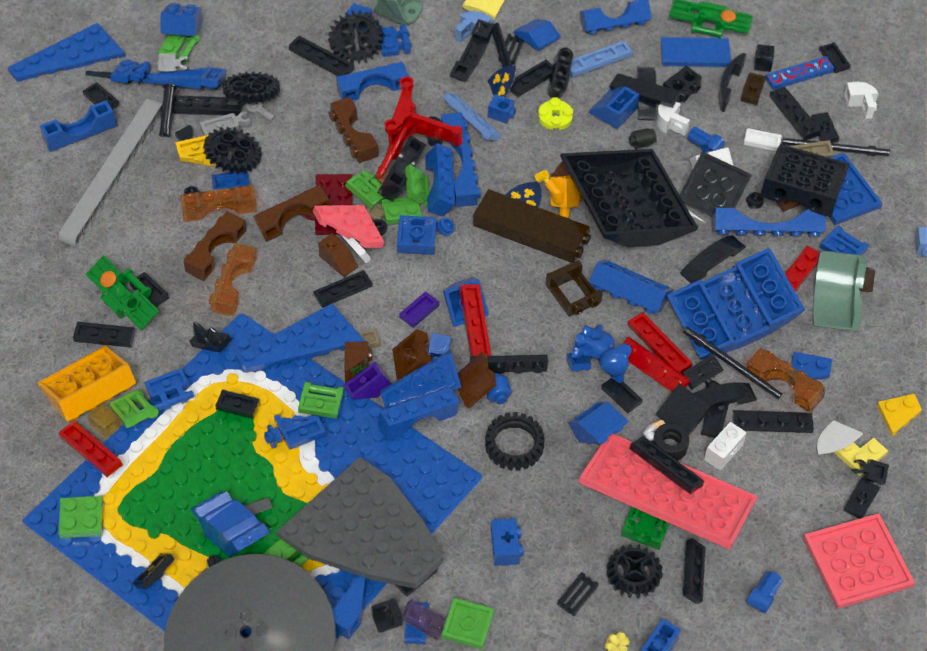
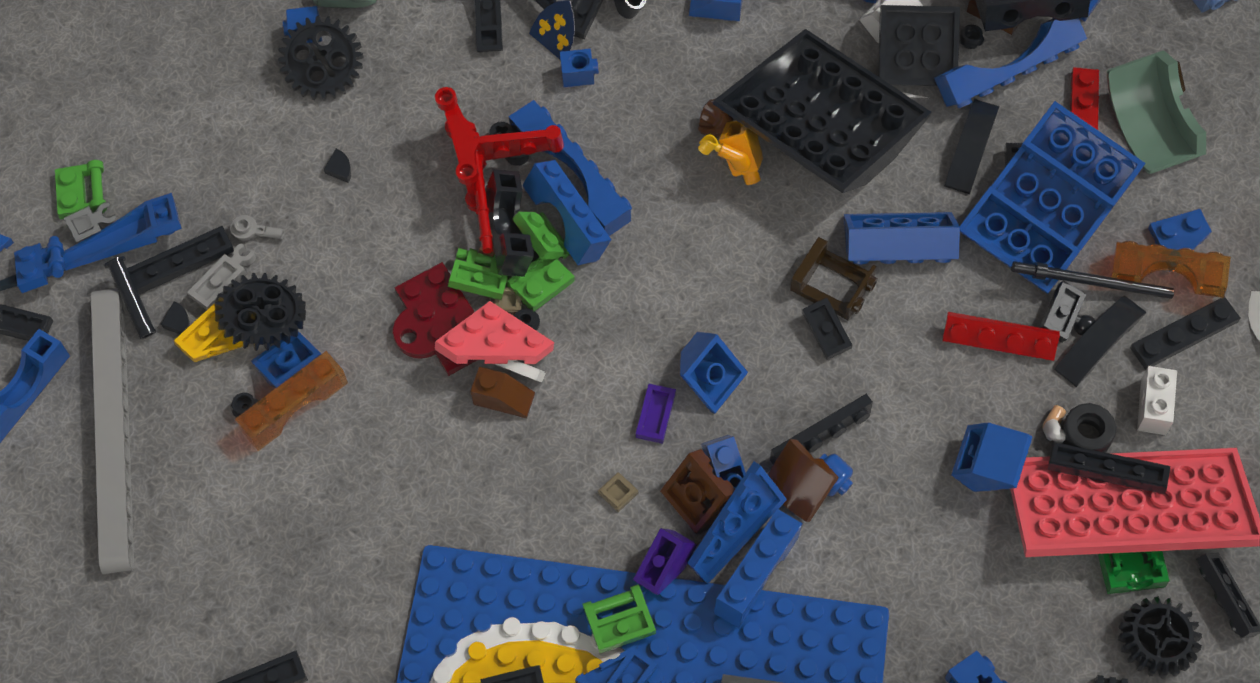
camera: 25 degrees left, 10 degrees up
(118, 297) = (246, 618): green piece -> none
(158, 294) = (278, 581): black plate -> none
(181, 19) = (63, 151): blue brick -> none
(209, 339) = (412, 611): black tile -> none
(227, 229) = (329, 432): reddish brown arch -> none
(239, 261) = (392, 535): clear orange arch -> none
(251, 87) = (226, 204): black gear -> none
(273, 219) = (382, 389): reddish brown arch -> none
(305, 339) = (542, 536): blue wing -> none
(320, 56) = (289, 109): black plate -> none
(328, 98) = (339, 166): none -> black tile
(343, 288) = (537, 436): black tile -> none
(354, 83) = (405, 90): blue arch -> none
(356, 358) = (624, 533): reddish brown slope -> none
(361, 145) = (429, 213): reddish brown arch -> none
(391, 46) = (374, 47): blue plate -> none
(416, 229) = (596, 300): blue brick -> none
(445, 226) = (614, 275): blue plate -> none
(473, 117) = (579, 108): medium blue plate -> none
(474, 320) = (746, 396): red plate -> none
(514, 461) = (905, 505): black tyre -> none
(527, 192) = (684, 178): dark blue sticker -> none
(531, 226) = (724, 217): dark brown brick -> none
(551, 313) = (827, 328): none -> black plate
(557, 106) = (649, 27): neon yellow plate -> none
(578, 364) = (905, 379): blue plate -> none
(600, 346) = (920, 346): blue animal -> none
(622, 395) = (983, 395): black tile -> none
(642, 138) = (781, 19): pearl dark grey brick -> none
(659, 342) = (985, 298): red plate -> none
(683, 409) = (1075, 377): black tile -> none
(714, 421) = (1118, 371): black tile -> none
(835, 243) = (1114, 50): blue plate -> none

